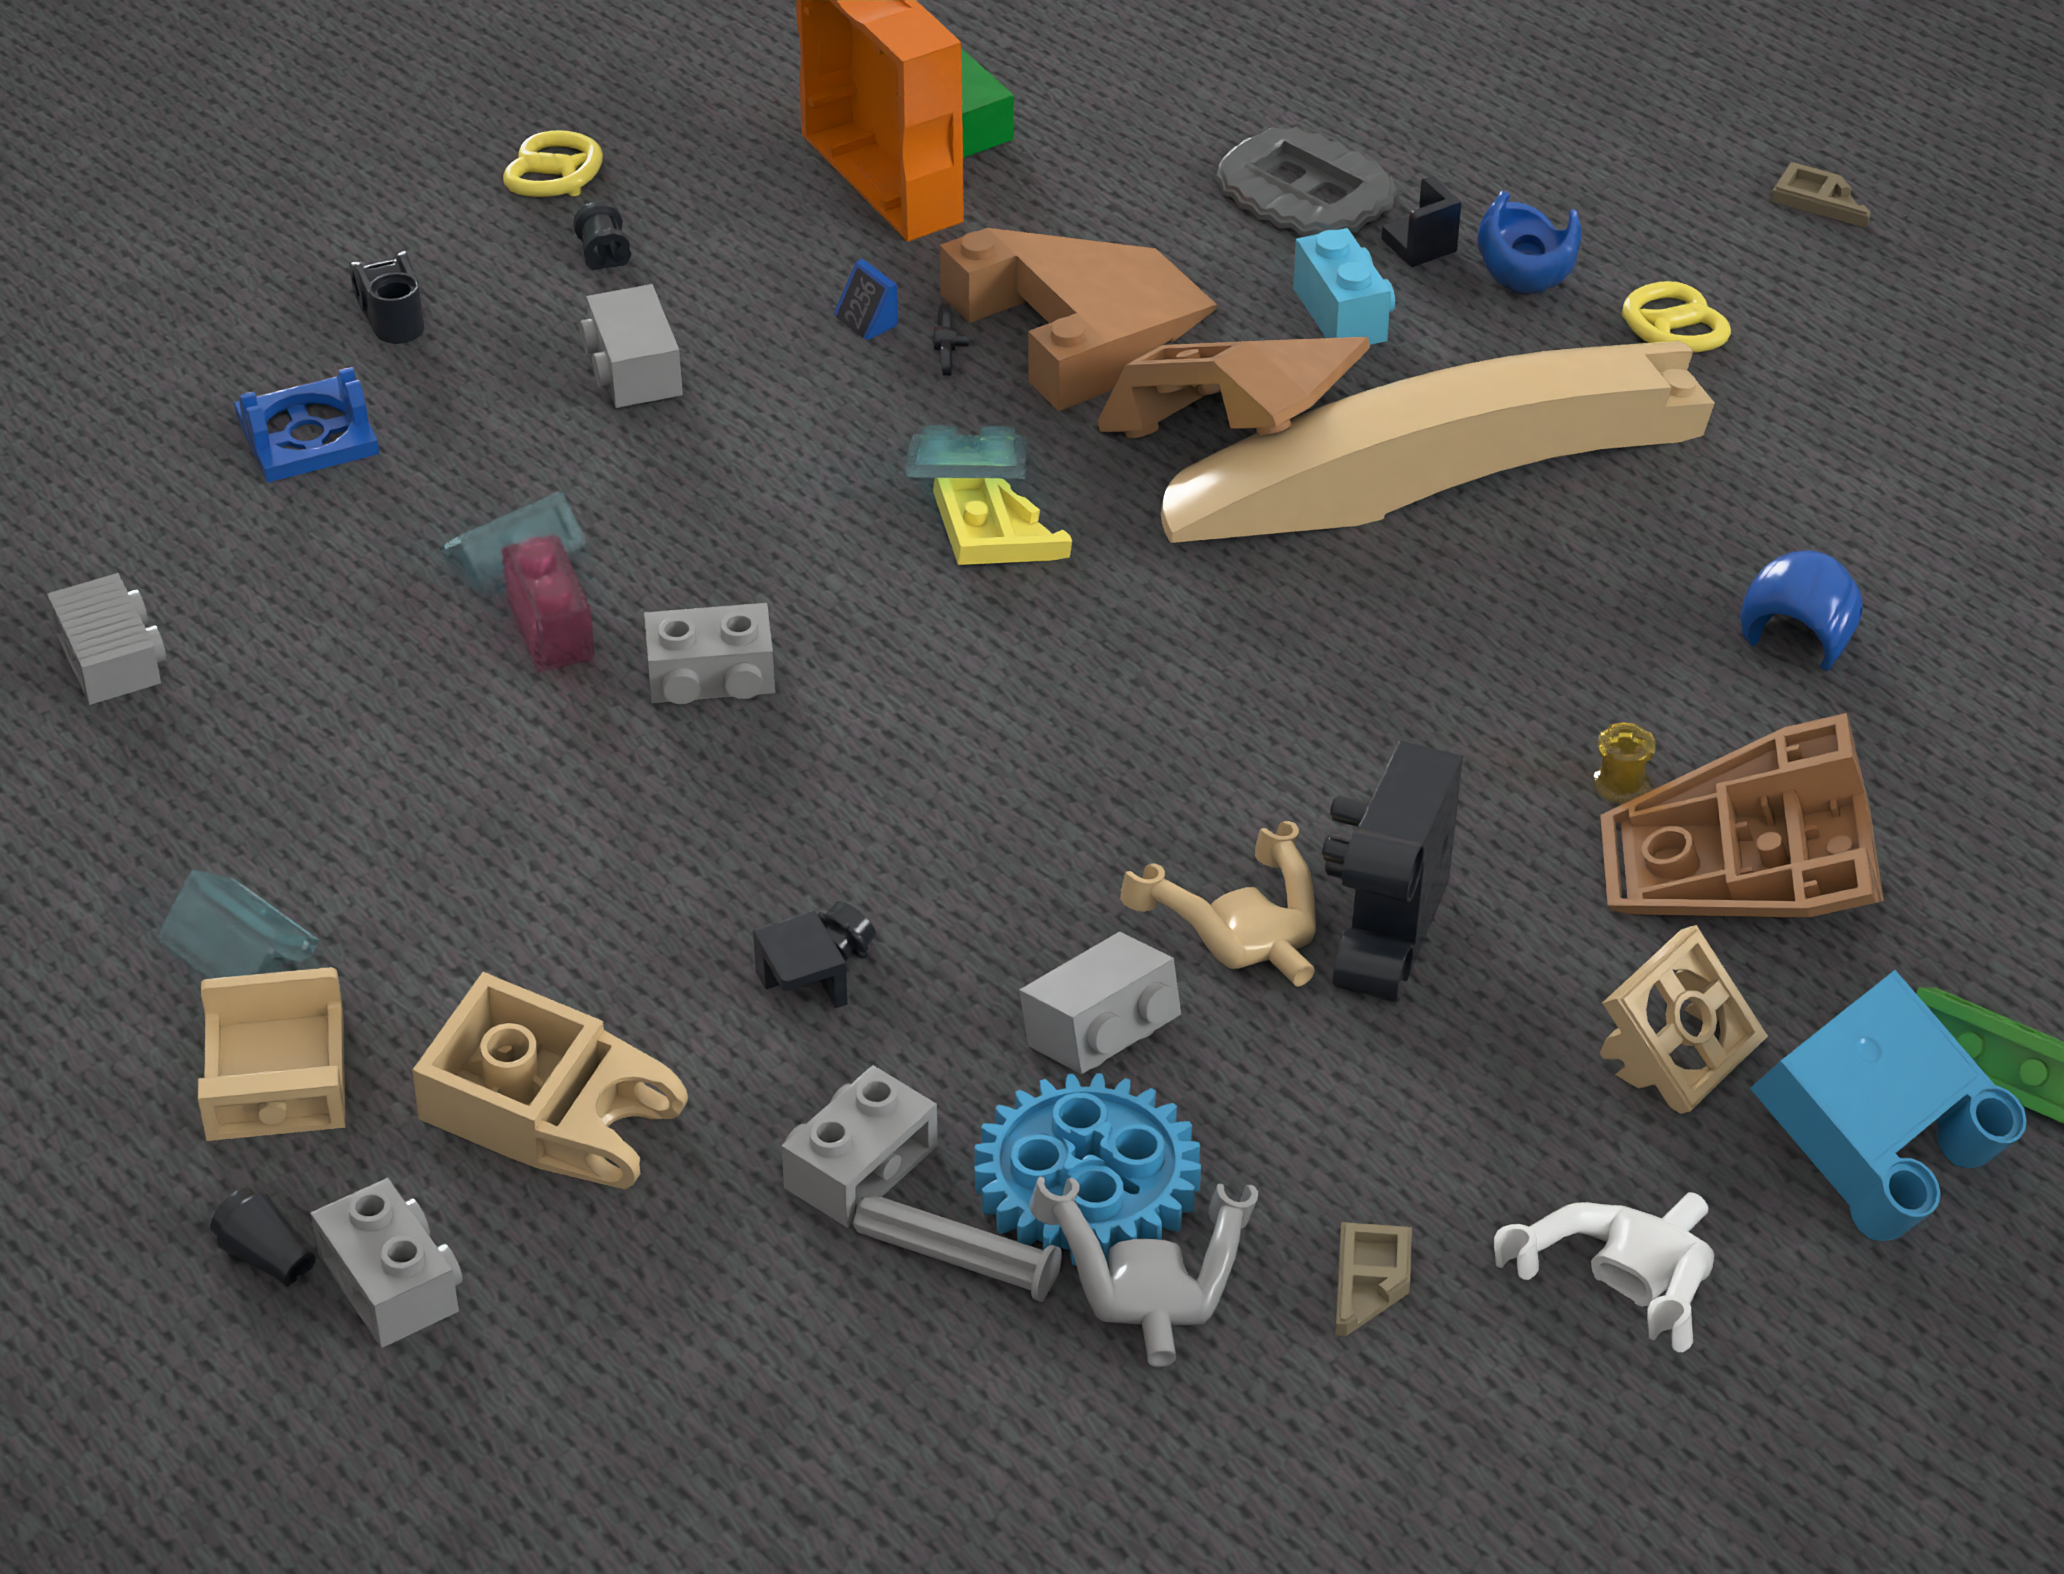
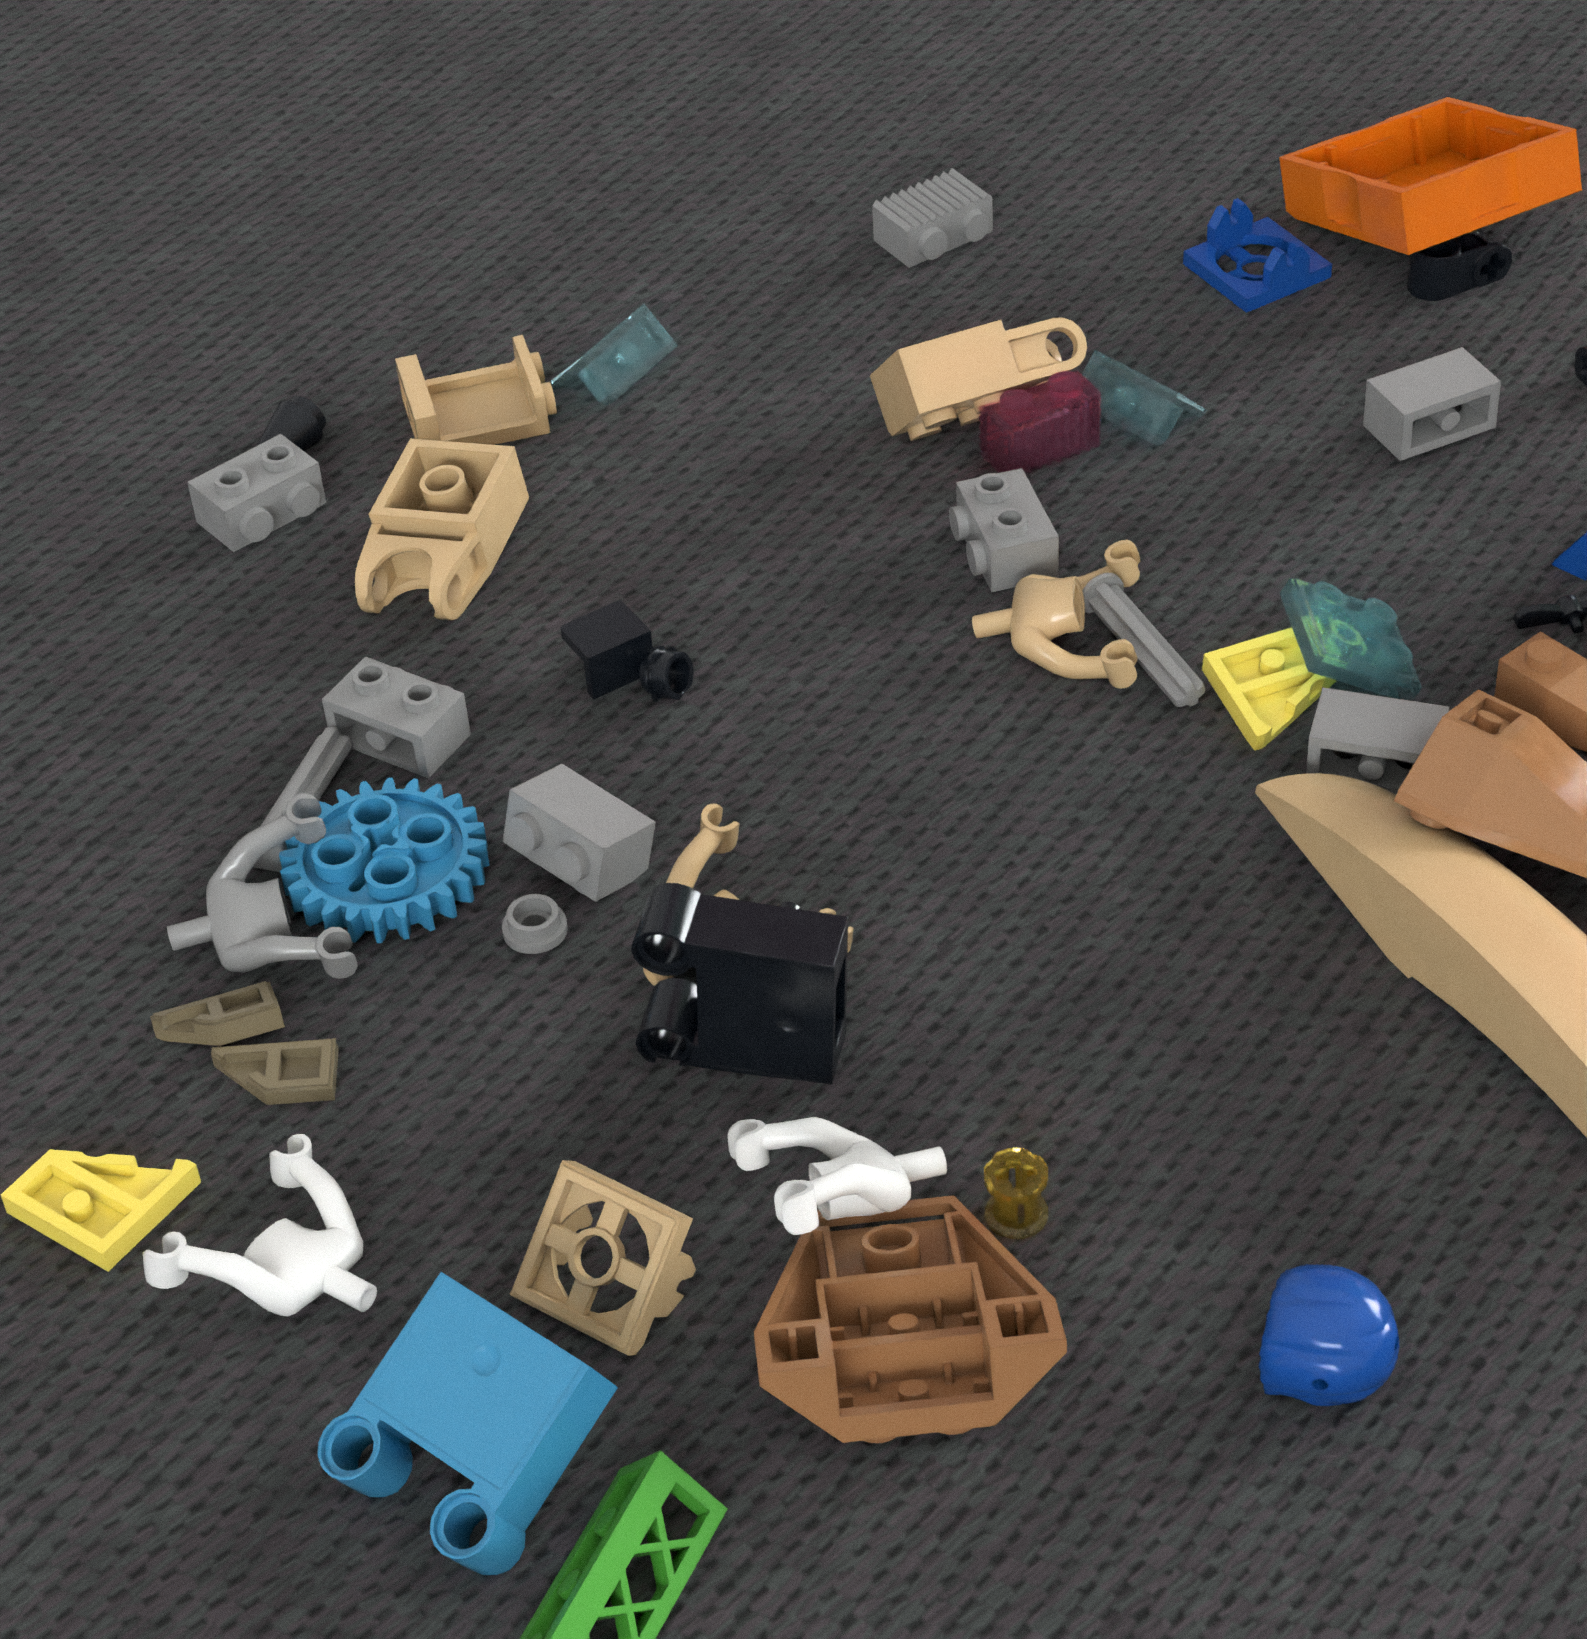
camera: 85 degrees right, 0 degrees up
(273, 265) = (1431, 174): none -> orange tile
(472, 629) = (967, 369): none -> tan brick
(856, 637) = (1055, 606): none -> tan piece
(905, 593) = (1154, 654): none -> light grey axle
(1120, 464) = (1374, 732): none -> light grey brick
(1205, 1047) = (534, 924): none -> light grey plate
(1292, 1312) = (221, 1017): none -> dark tan tile
(1546, 1416) = (97, 1203): none -> light yellow wing
(1598, 860) = (856, 1182): none -> white piece

